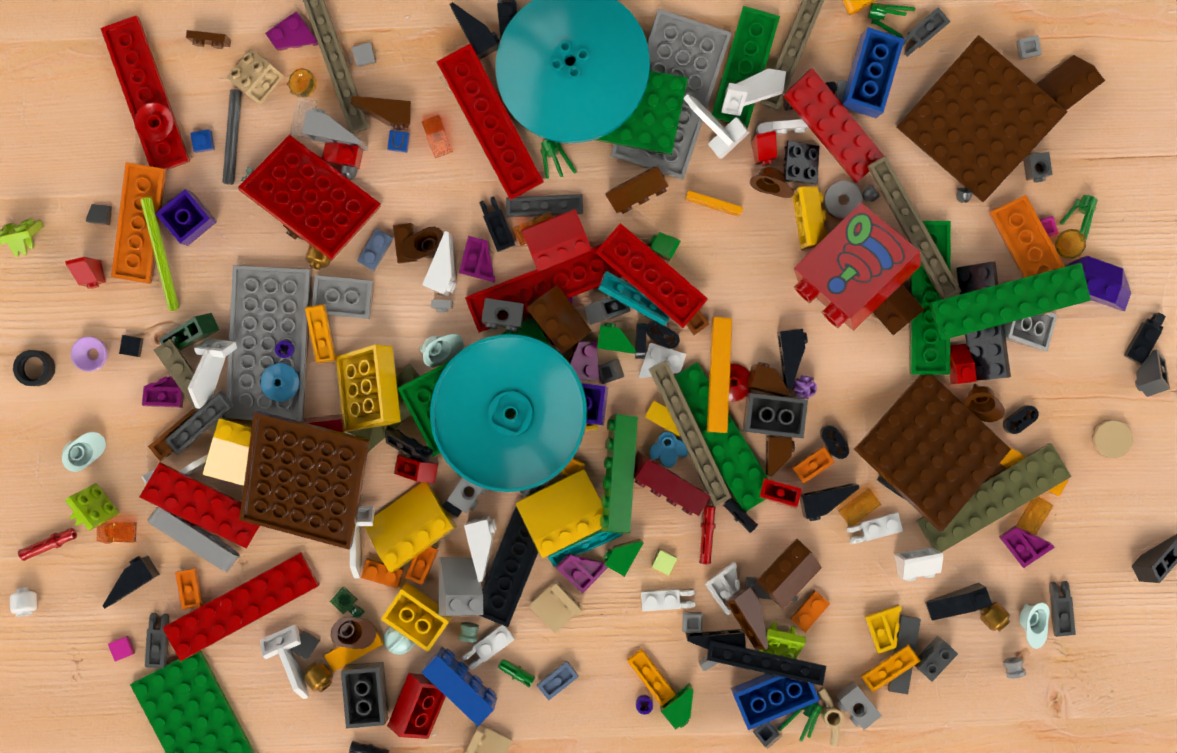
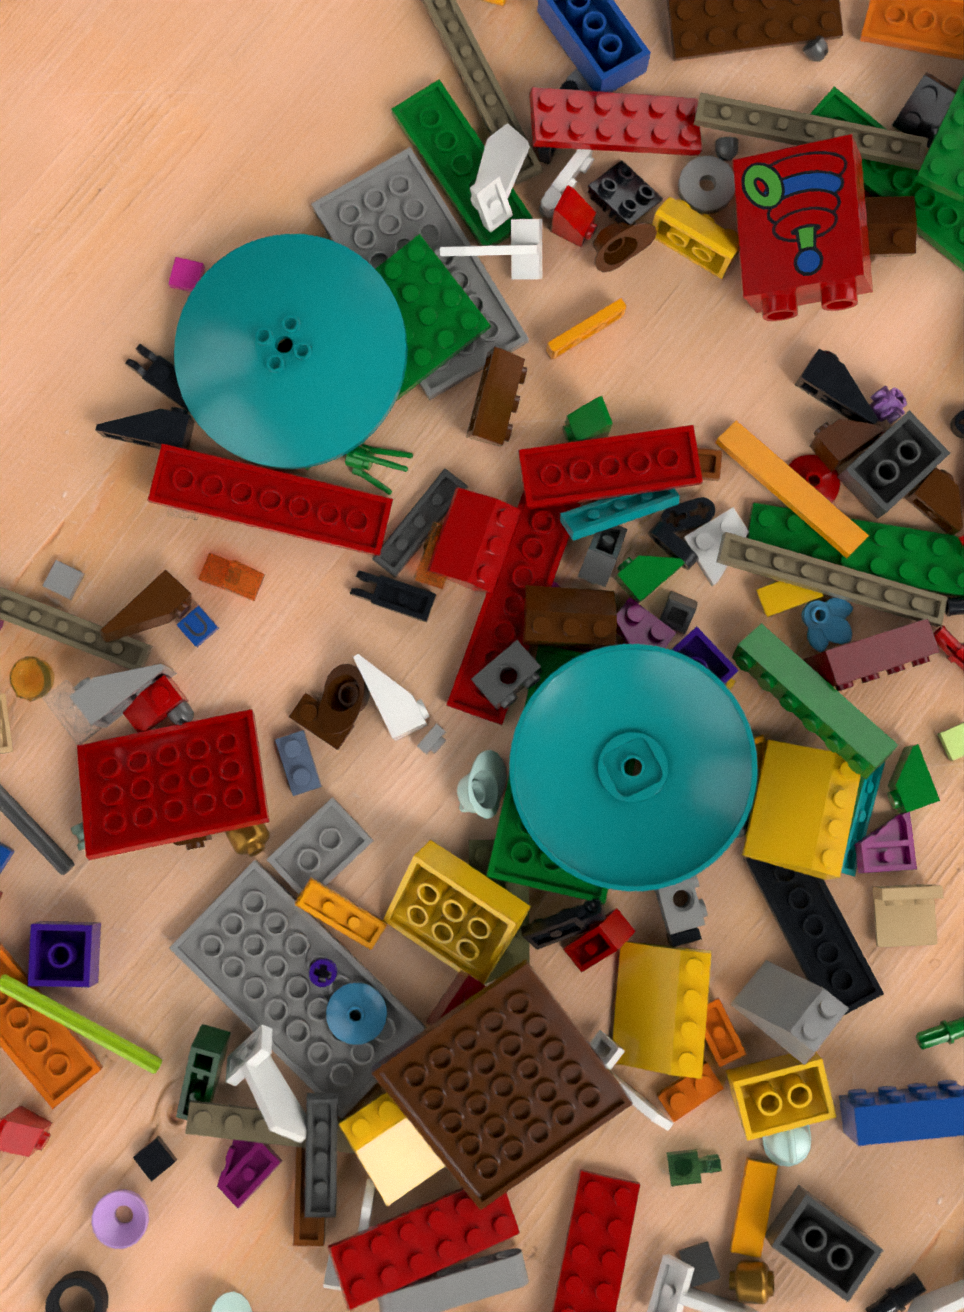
camera: 55 degrees left, 5 degrees down
(353, 633) = (734, 1190): reddish brown piece -> none
(416, 708) = (890, 1192): red slope -> none
(468, 632) = (850, 1047): sand green wheel -> none
(477, 260) = (415, 654): magenta wing -> none
(480, 537) = (746, 928): white slope -> none
(489, 645) = (886, 1037): white hinge -> none

